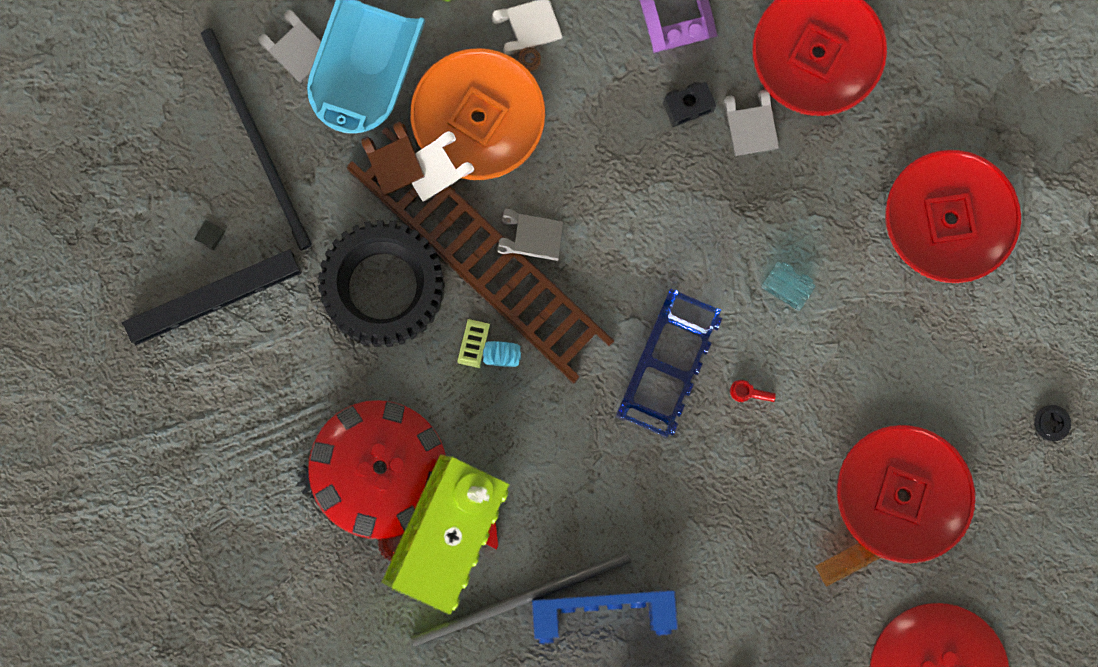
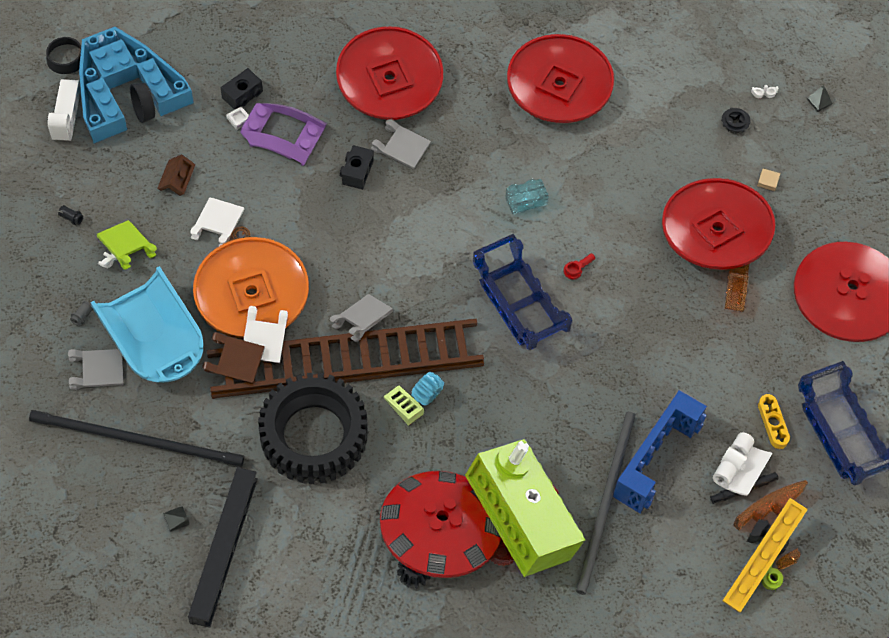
camera: 50 degrees left, 20 degrees down
(1006, 505) = (768, 179): none -> tan tile

